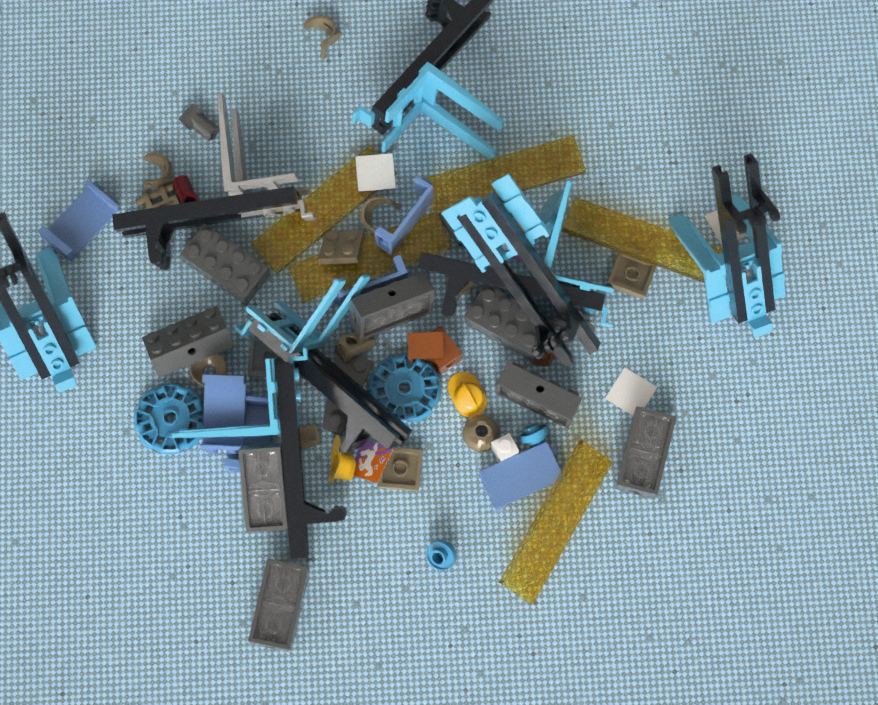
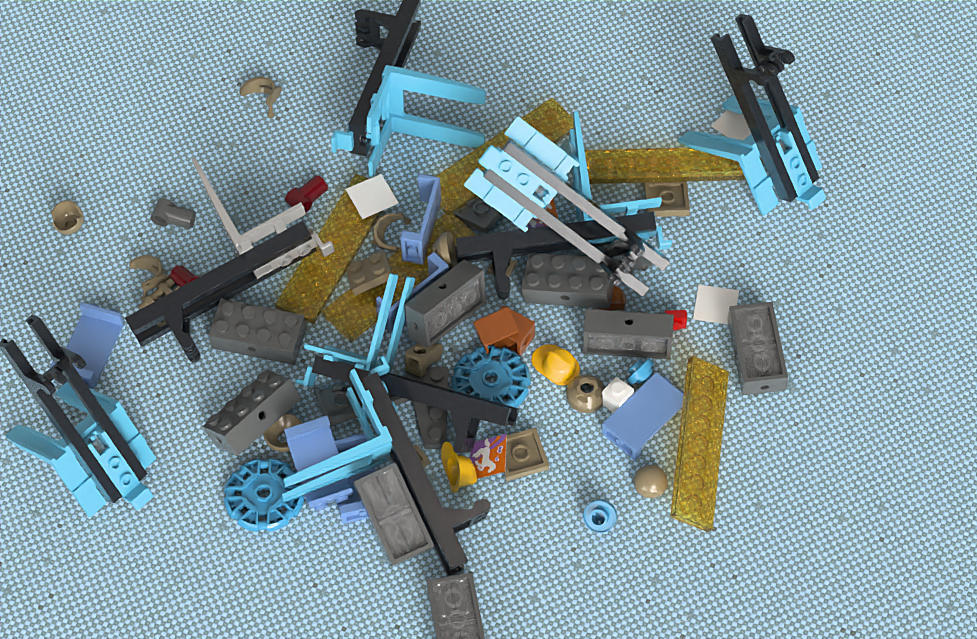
camera: 20 degrees left, 15 degrees down
(108, 91) = (67, 217): none -> dark tan hair
(315, 149) = (307, 193): none -> dark red piece
(411, 254) = (445, 249): none -> dark tan piece
(499, 538) = (650, 481): none -> dark tan hair
(588, 396) = (680, 318): none -> red plate

